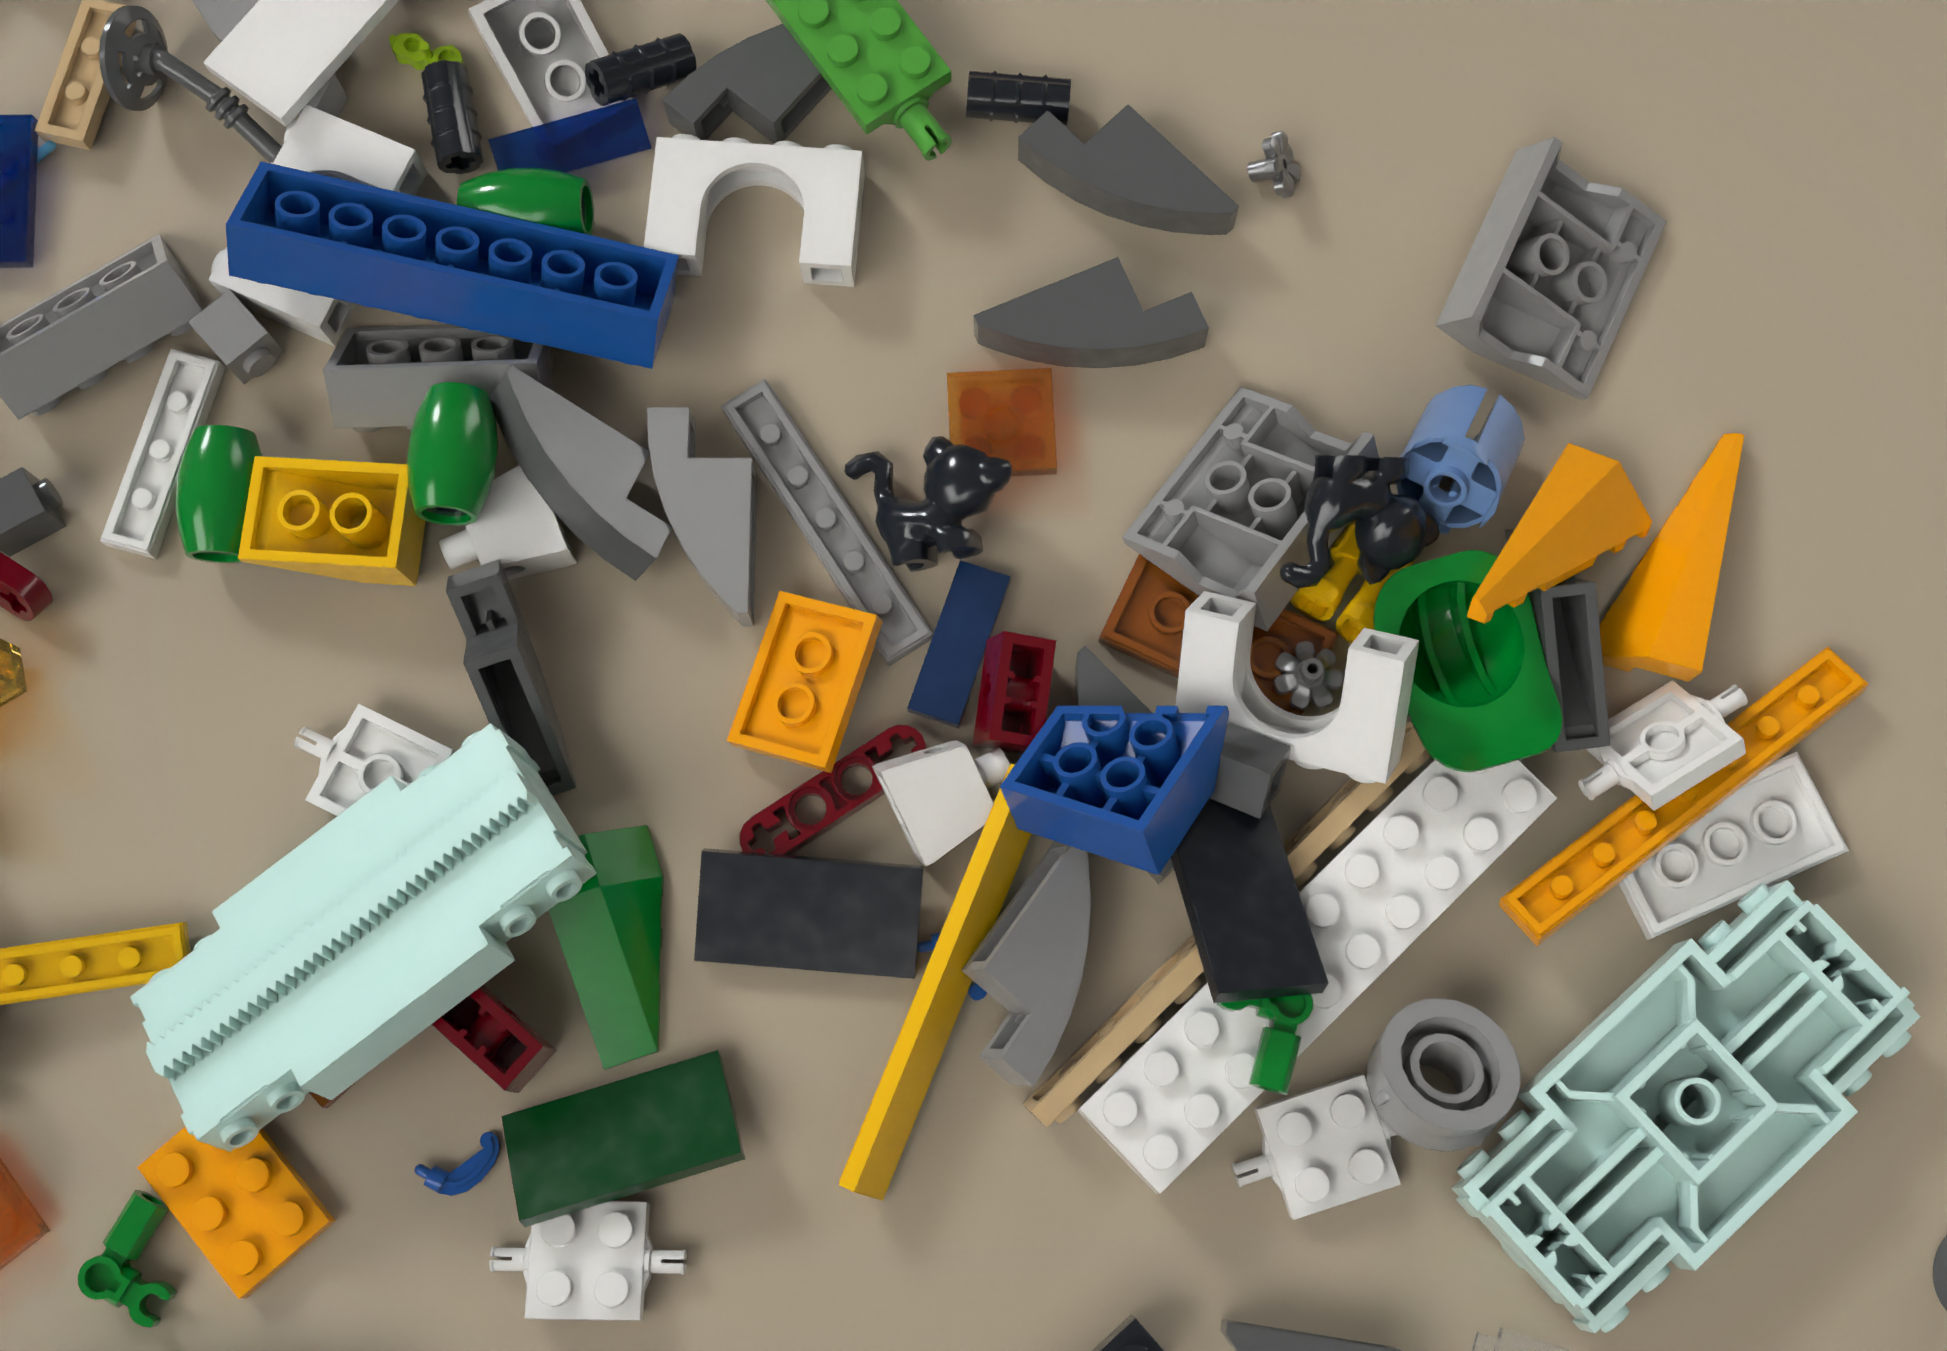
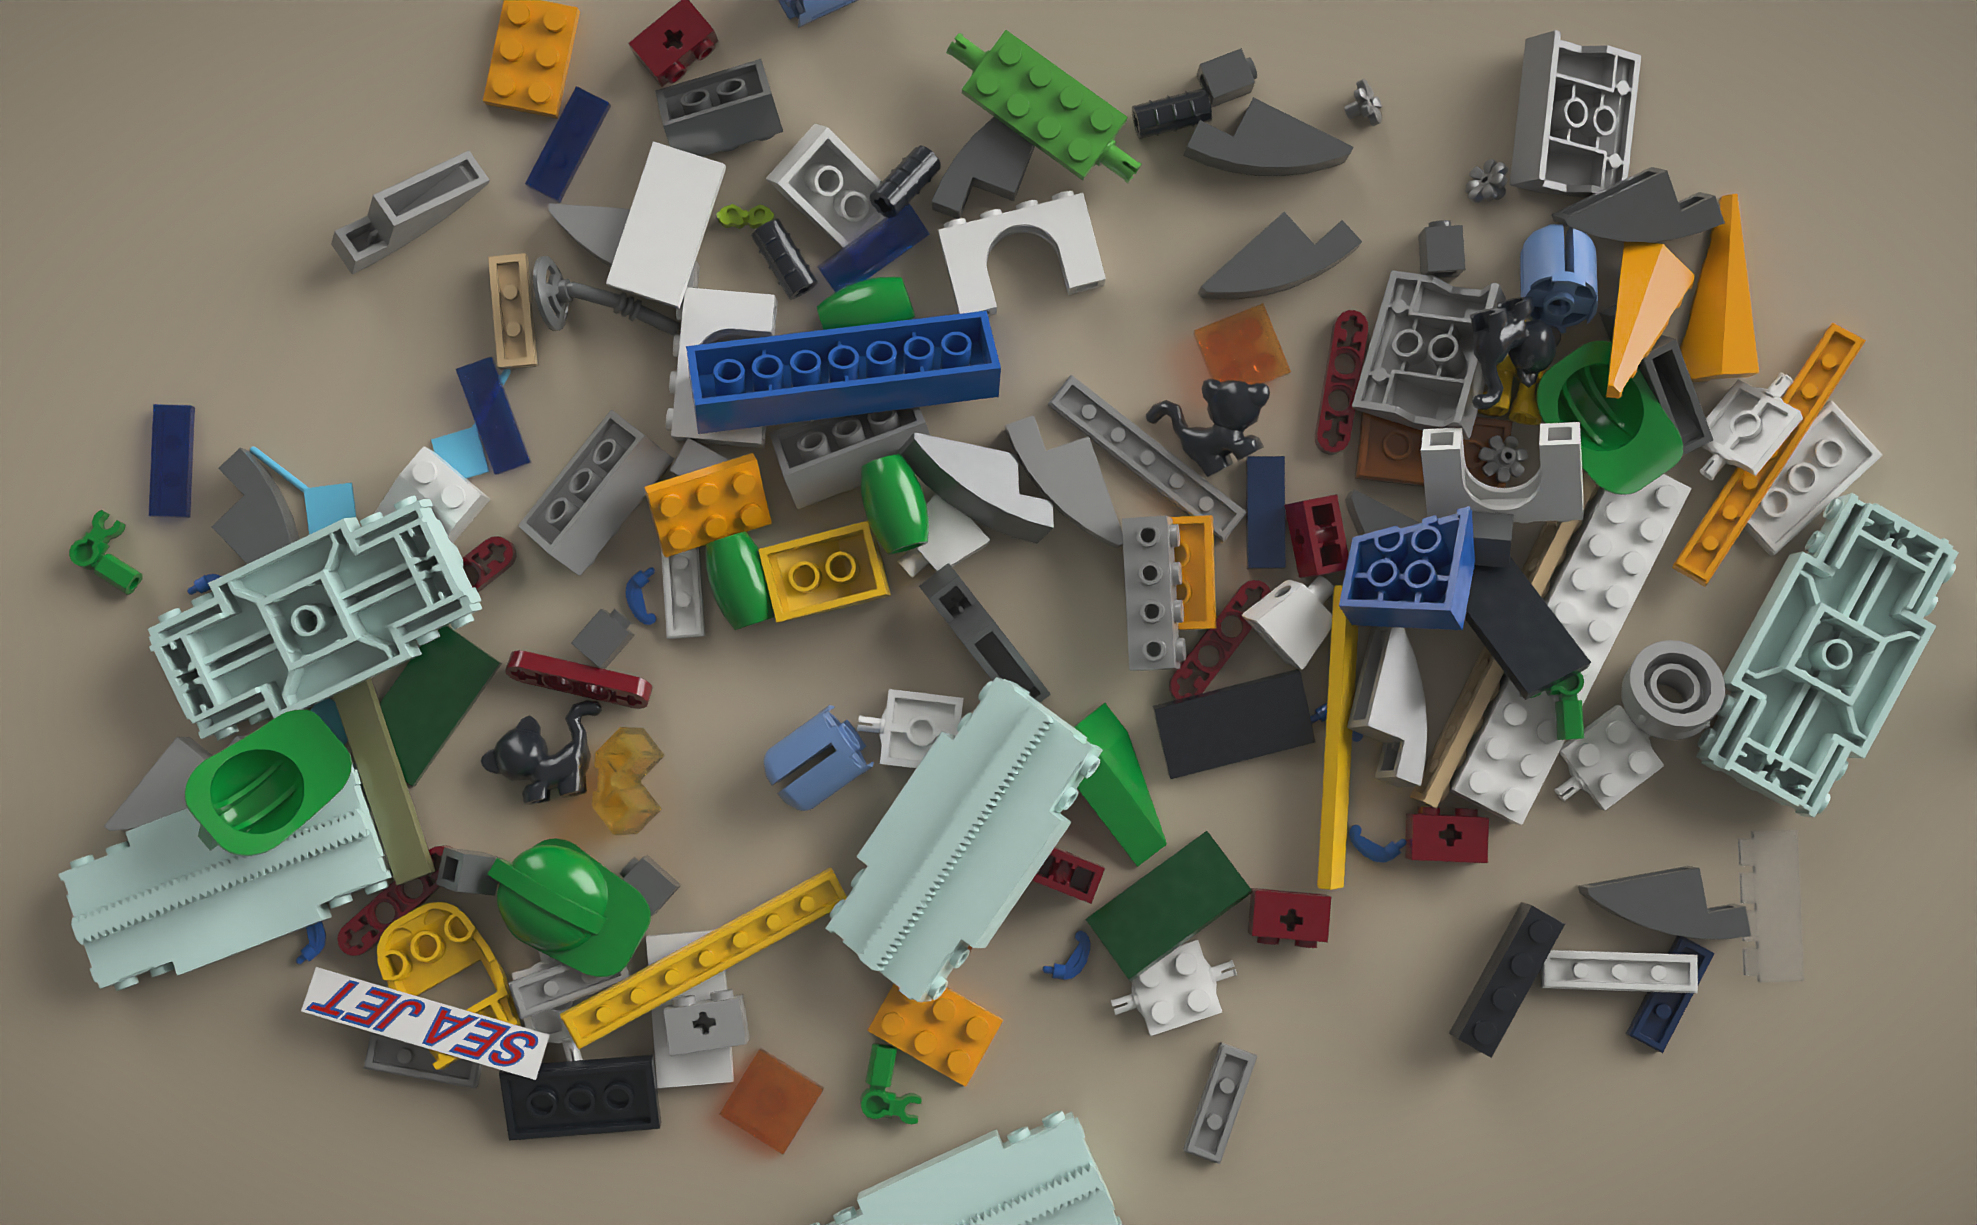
camera: 25 degrees left, 10 degrees up
(86, 476) = (635, 596): none -> blue piece
(216, 378) = (708, 504): none -> light orange plate
(219, 763) = (806, 744): none -> medium blue cylinder
(755, 691) = (1152, 593): none -> light grey brick
(765, 1186) = (1312, 914): none -> dark red brick
(943, 1162) = (1372, 850): none -> blue piece
(1074, 1203) = (1469, 839): none -> dark red brick
(1105, 76) = (1227, 77): none -> dark grey brick
(1117, 504) = (1341, 382): none -> dark red beam
(1316, 377) = (1442, 249): none -> dark grey brick
(1407, 313) = (1487, 182): none -> flat silver plant
(1604, 411) = (1642, 211): none -> dark grey slope

